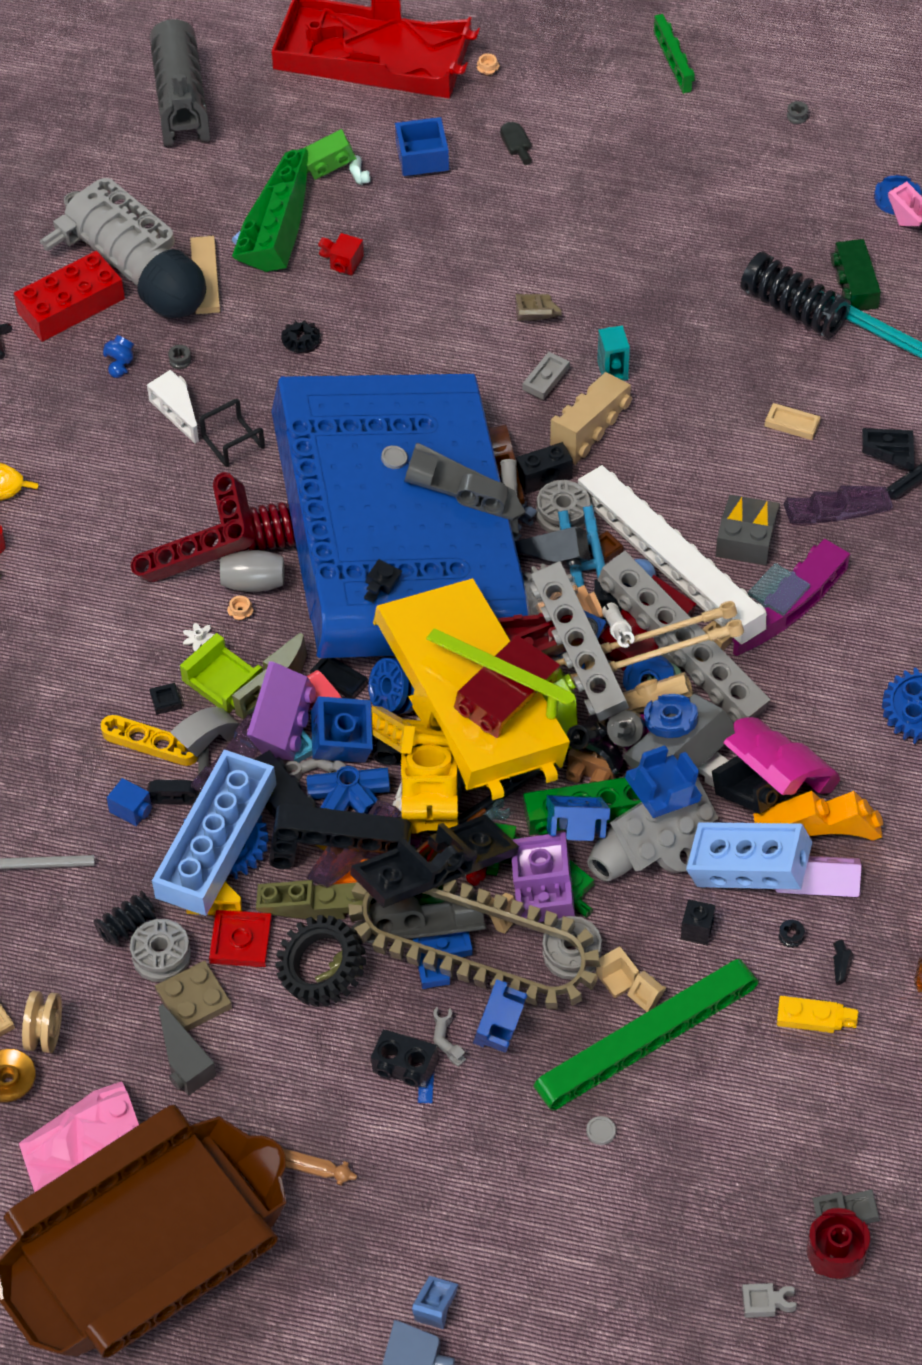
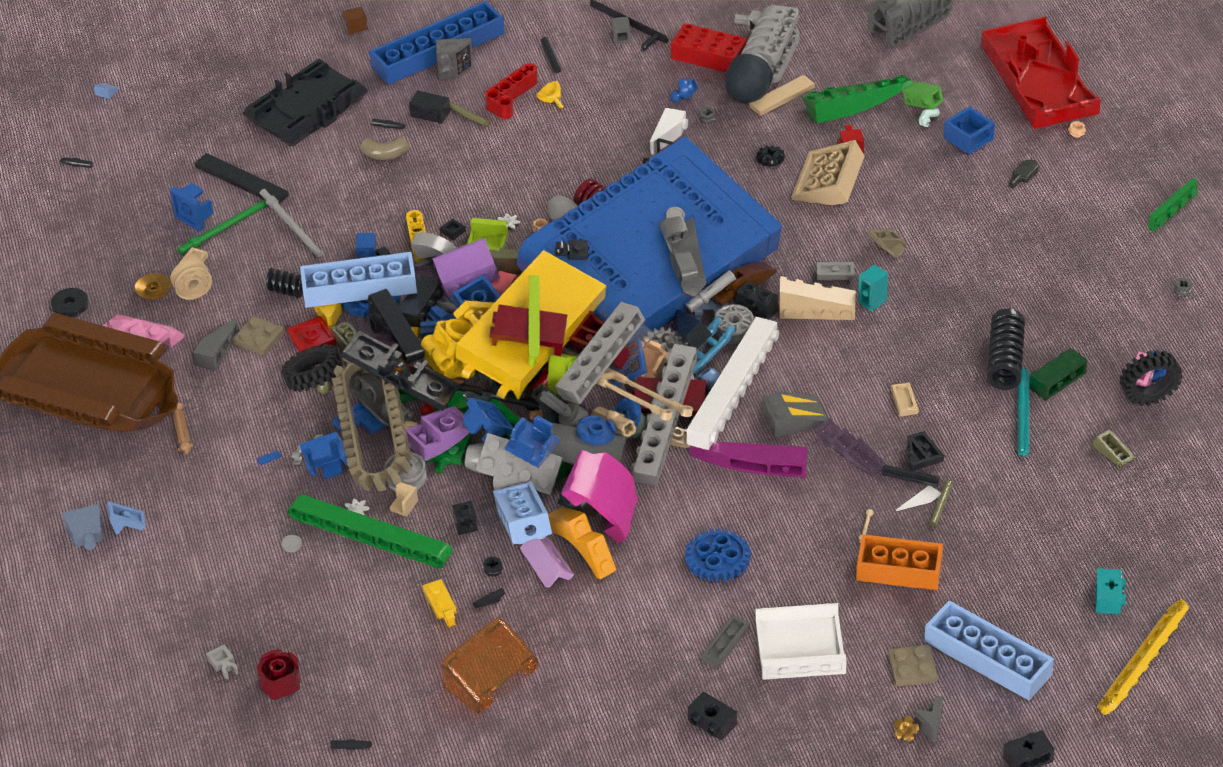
camera: 60 degrees right, 10 degrees down
(155, 936) = (277, 305): light grey wheel -> none
(203, 540) = (566, 184): dark red beam -> none
(382, 301) = (829, 174): none -> tan slope
(406, 1052) = (276, 435): black brick -> none
(588, 1031) = (357, 507): none -> white plant
(610, 546) = (721, 358): reddish brown tile -> none
(619, 627) = (636, 373): white pin -> none
(646, 991) = (400, 517): tan tile -> none
(779, 589) = (745, 442): clear light blue piece -> none
(861, 1203) = (312, 674): dark grey slope -> none

